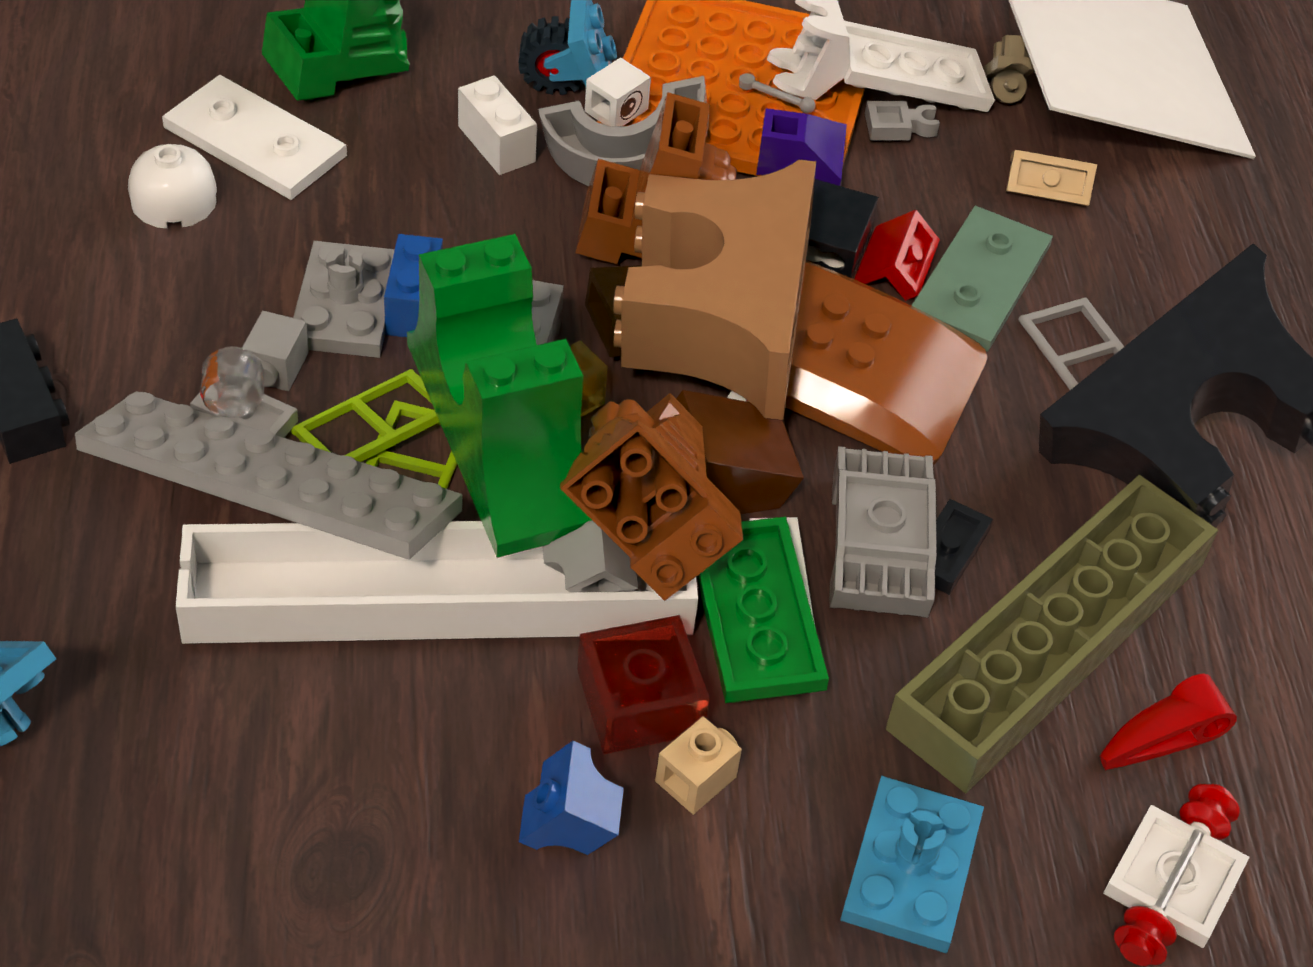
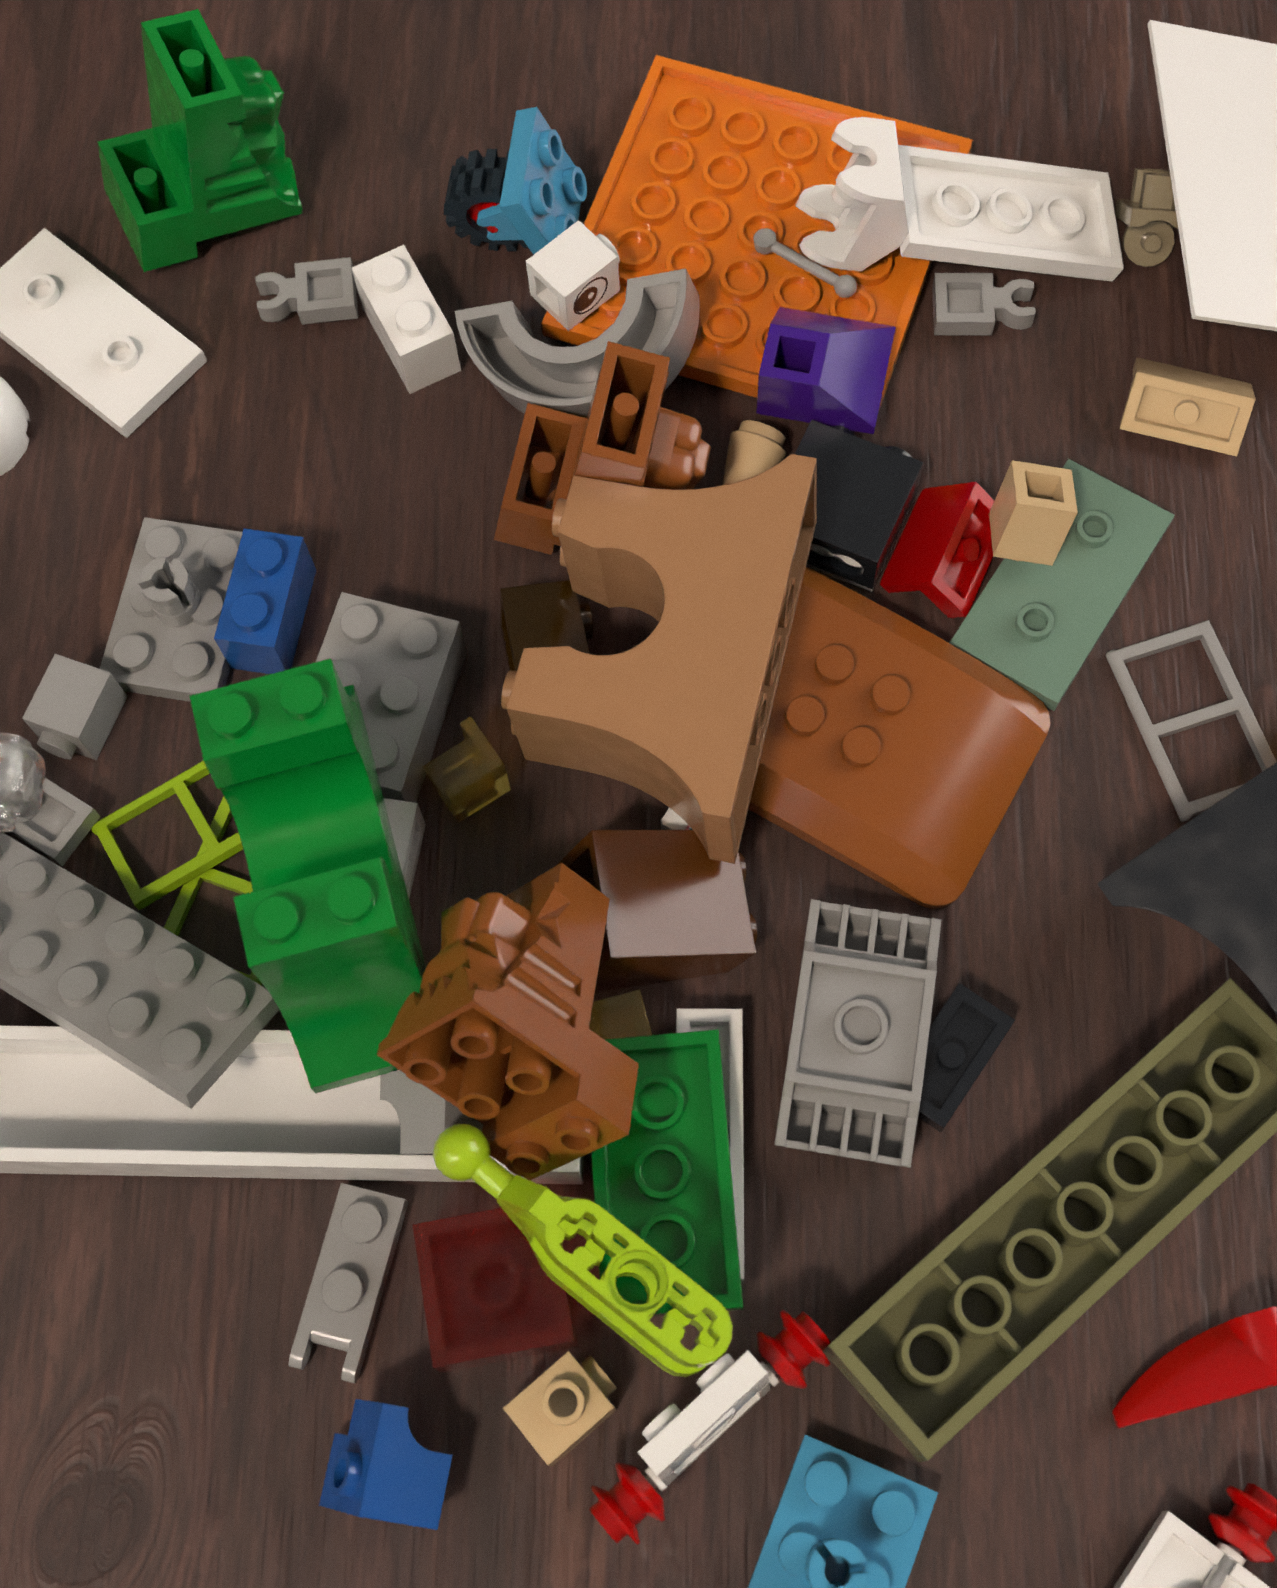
camera: 15 degrees right, 20 degrees up
(427, 111) = (317, 292): none -> light grey plate
(524, 696) = (350, 1277): none -> light grey hinge
(730, 628) = (548, 1219): none -> lime piece
(812, 753) = (682, 1436): none -> plate
(958, 223) = (1032, 513): none -> tan brick

